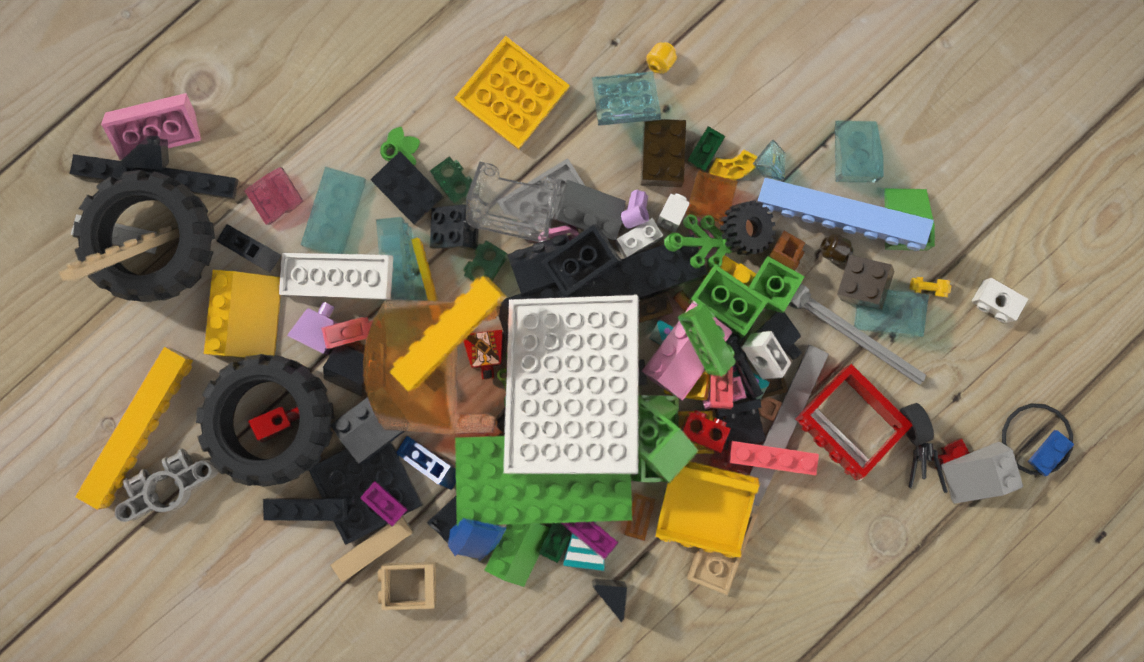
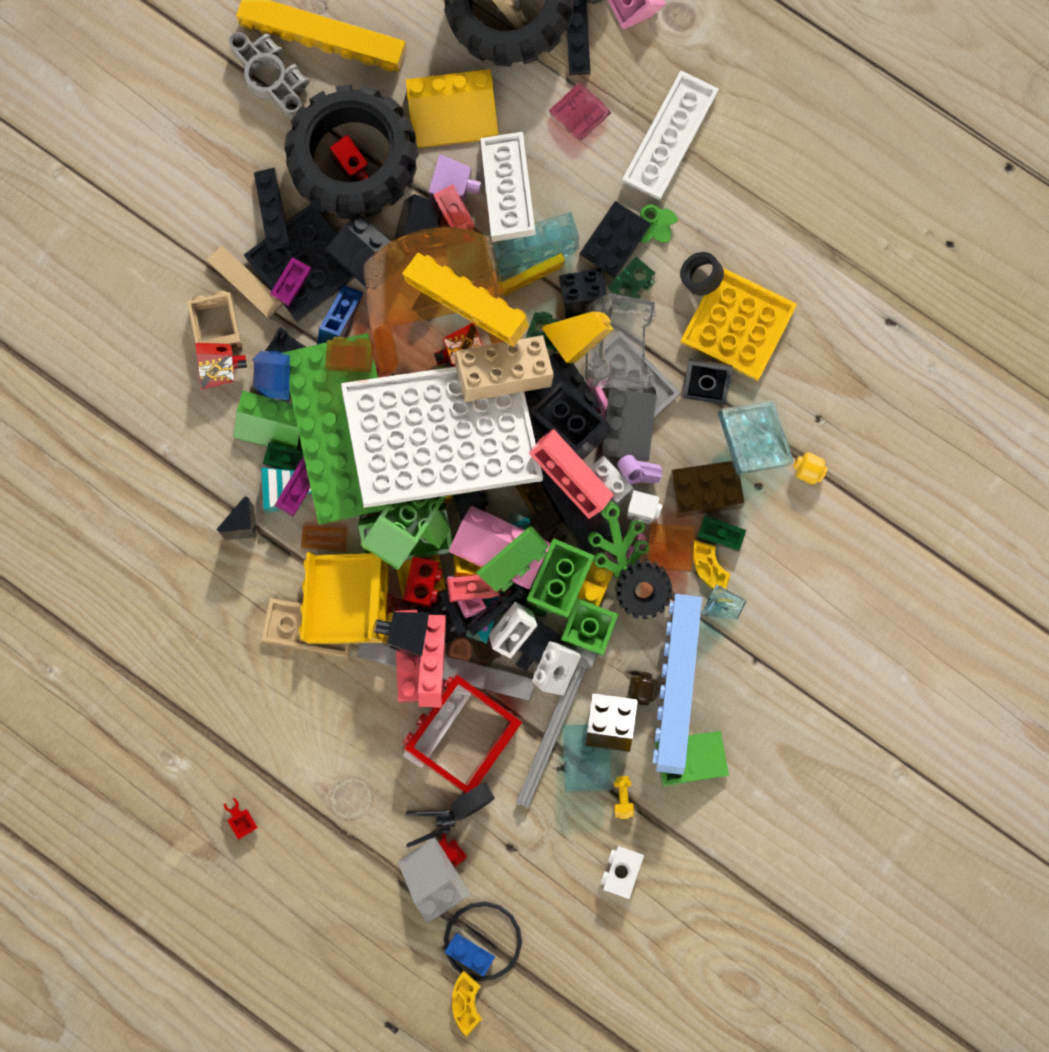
camera: 85 degrees right, 5 degrees down
(248, 248) = (520, 99): black slope -> none
(316, 116) = (670, 135): none -> white plate
(333, 211) = (575, 173): clear light blue plate -> none
(444, 118) = (695, 261): none -> black tyre
(451, 591) = (217, 364): none -> torso
(476, 459) = (349, 355): none -> clear orange brick
(498, 237) = (578, 334): none -> yellow slope
(522, 313) = (503, 369): none -> tan brick
(562, 132) = (707, 381): none -> black slope
(636, 269) = (571, 474): none -> coral brick
(757, 456) = (404, 632): none -> black torso
(785, 435) = (432, 663): none -> coral brick
(788, 250) = (629, 637): dark orange cylinder -> none
(808, 322) = (556, 668): none -> white brick
(858, 152) = (755, 693): clear light blue slope -> none
(895, 644) = (242, 821): none -> red plate
(1092, 467) = (464, 1004): none -> yellow tile

